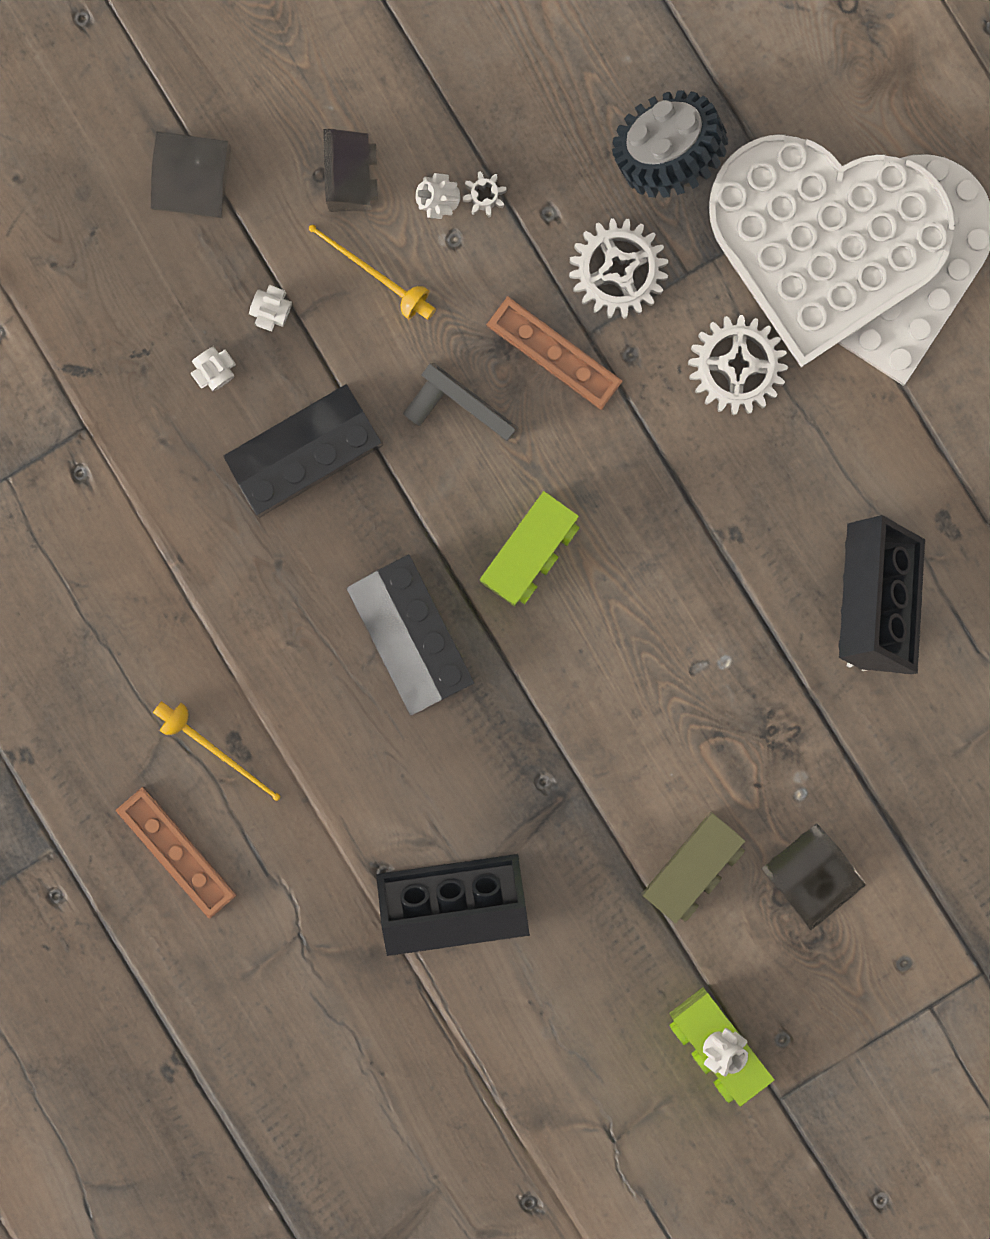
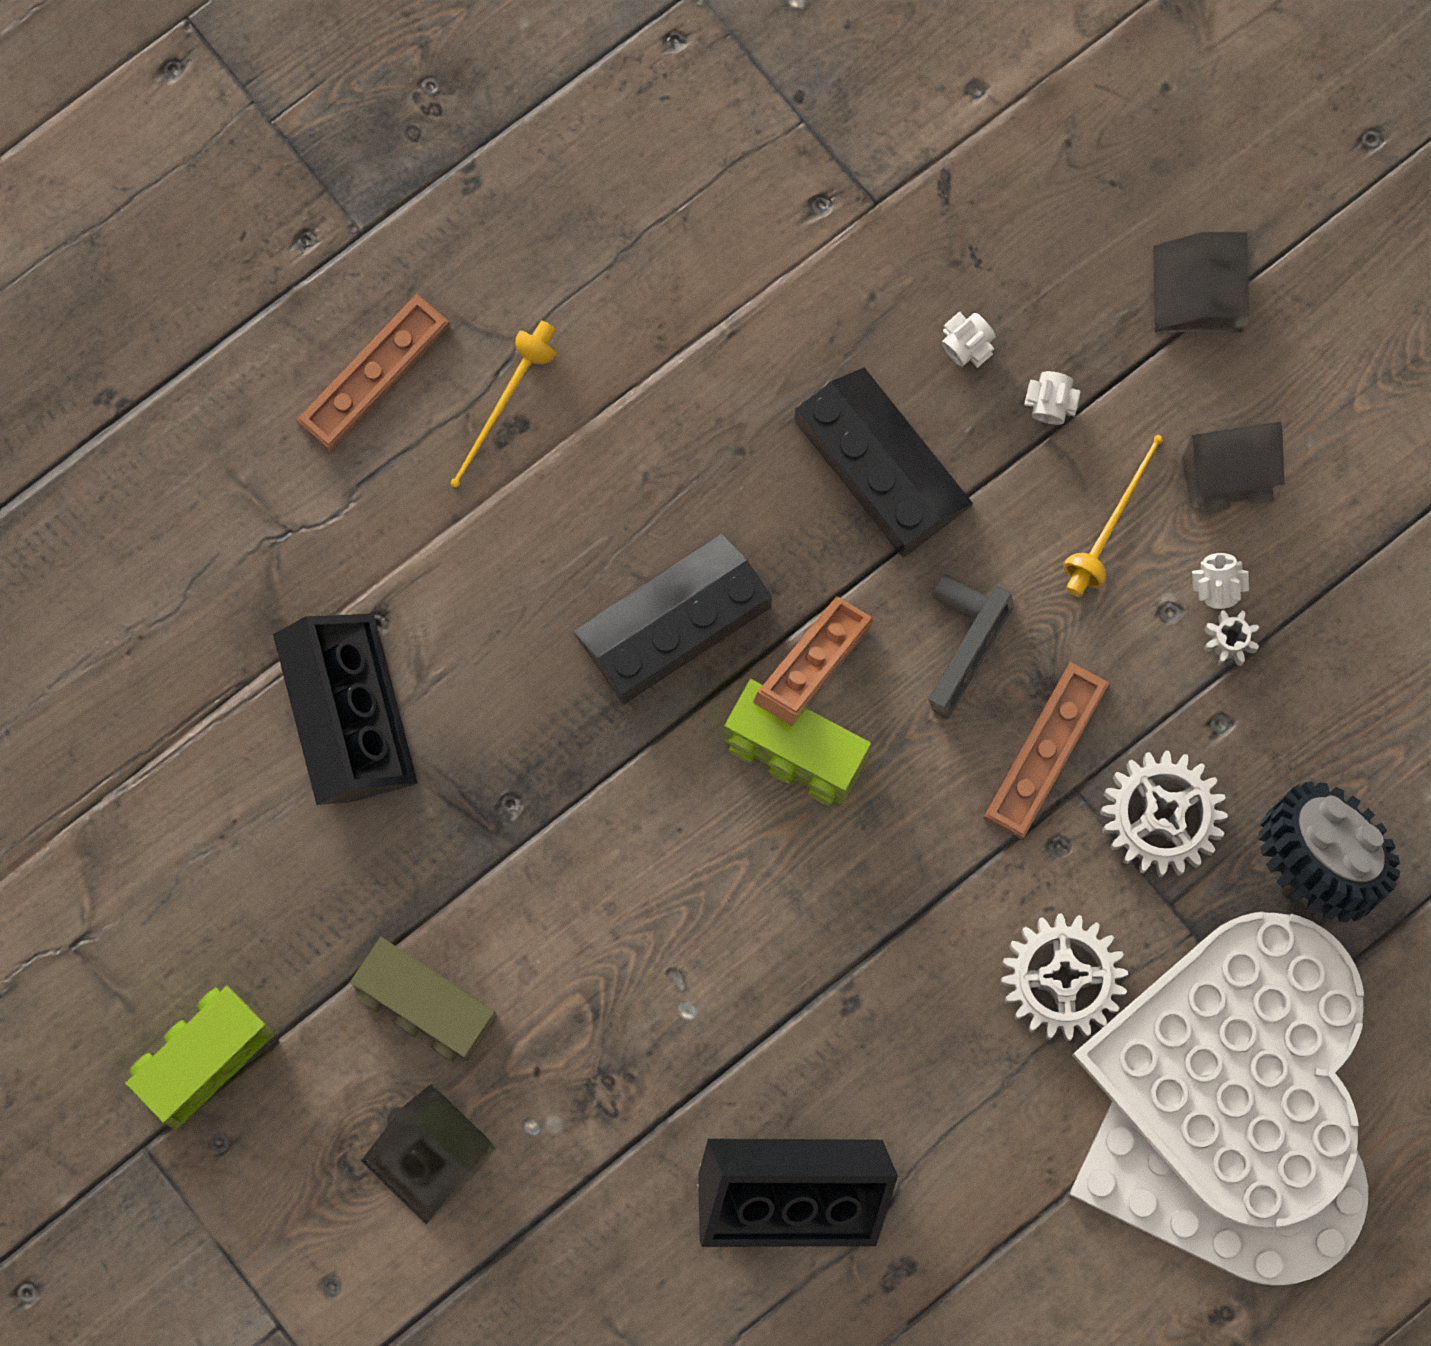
camera: 90 degrees right, 10 degrees down
(467, 527) = (813, 661): none -> nougat tile
(725, 1052) = (190, 1051): white gear -> none

